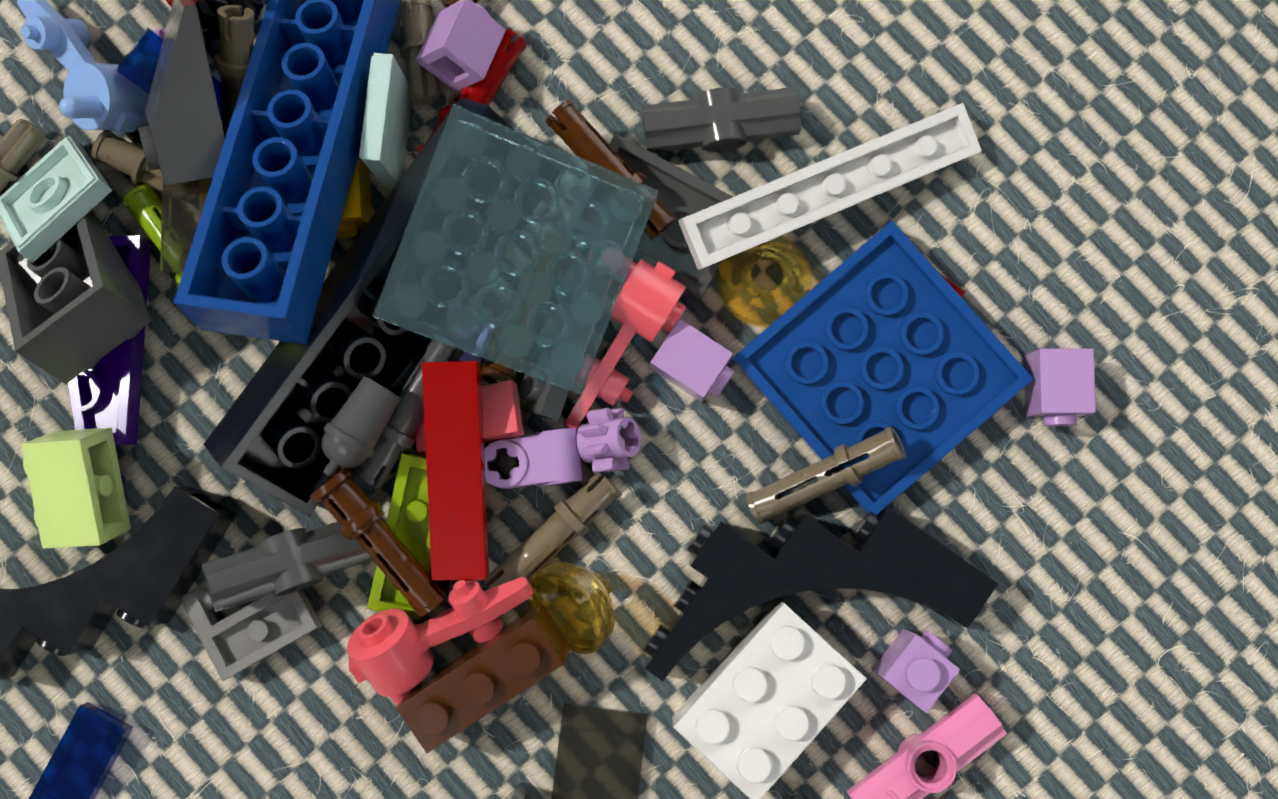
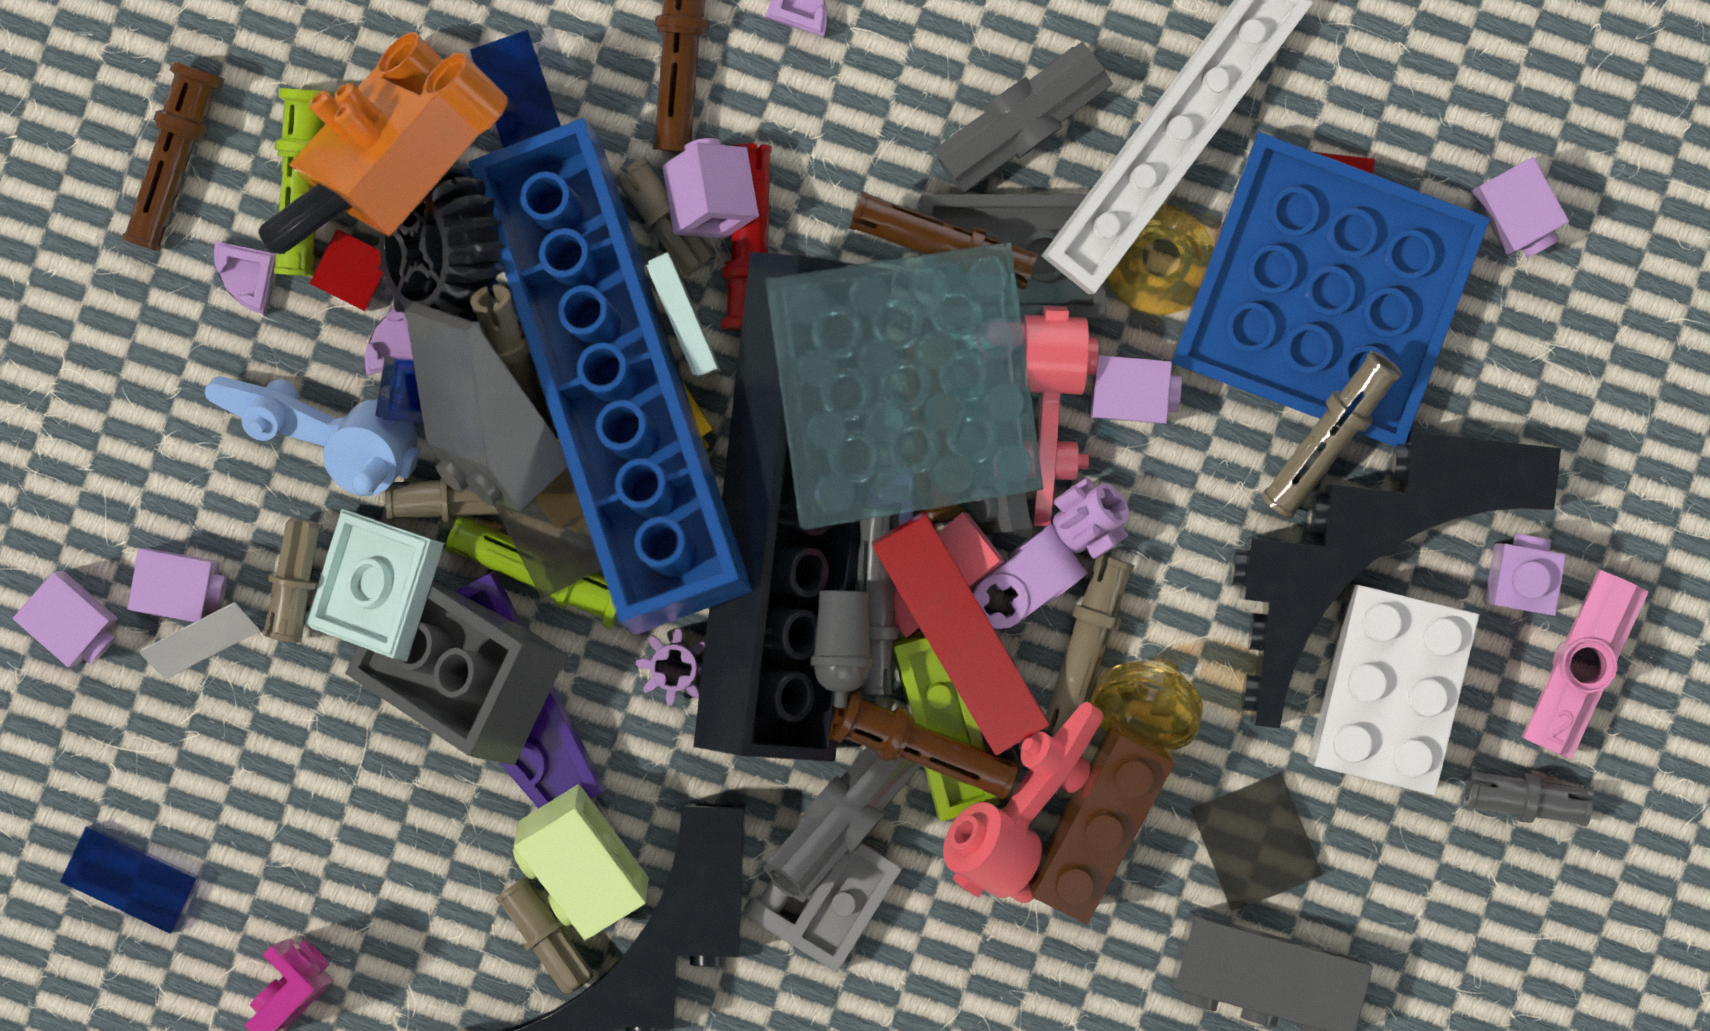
camera: 40 degrees left, 5 degrees up
(25, 540) = (545, 936): none -> dark tan axle
(223, 371) = (660, 677): none -> lavender gear

